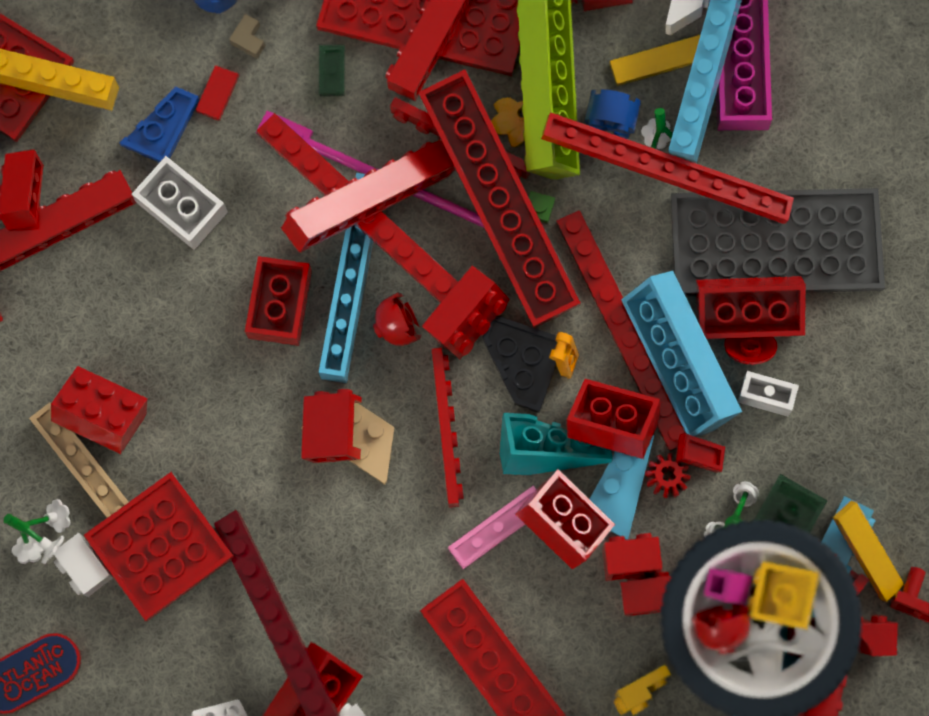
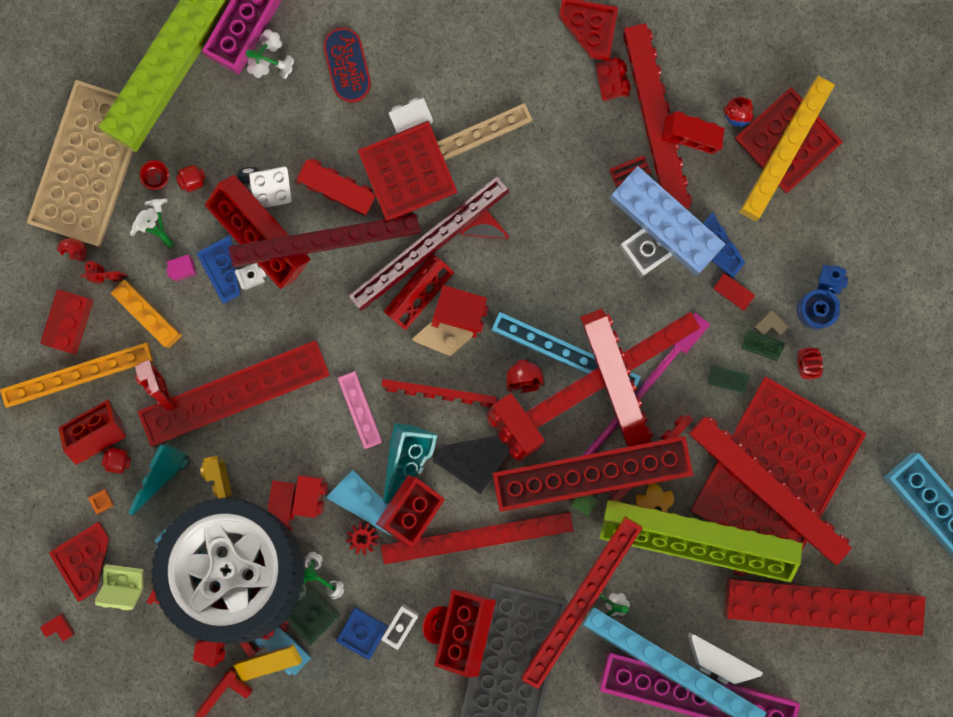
camera: 105 degrees right, 10 degrees up
(32, 547) = (434, 84): white plant -> none
(77, 244) = (645, 165): none -> red tile
(98, 409) = (516, 152): red brick -> none
(145, 188) = (667, 221): none -> light blue brick
(202, 641) = (335, 187): none -> red wedge
(209, 427) = (485, 227): none -> tile
(251, 495) = (429, 243): none -> plate
(277, 39) = (762, 345): none -> clear green plate
(278, 301) = (562, 297): red brick -> none
(315, 495) = (415, 289): none -> red fence
(565, 354) = (464, 489): light orange plate -> none
(565, 519) = (349, 457): red slope -> none
(612, 112) = (639, 575): blue brick -> none
(654, 61) = (673, 620): yellow tile -> none
(681, 354) = (443, 573): medium azure brick -> none
(700, 453) = (371, 566): red tile -> none
(721, 628) = (226, 541): red cylinder -> none
(728, 585) = (253, 554): dark pink brick -> none
(783, 595) = (233, 590): yellow plate -> none
(792, 444) = (362, 633): none -> blue tile

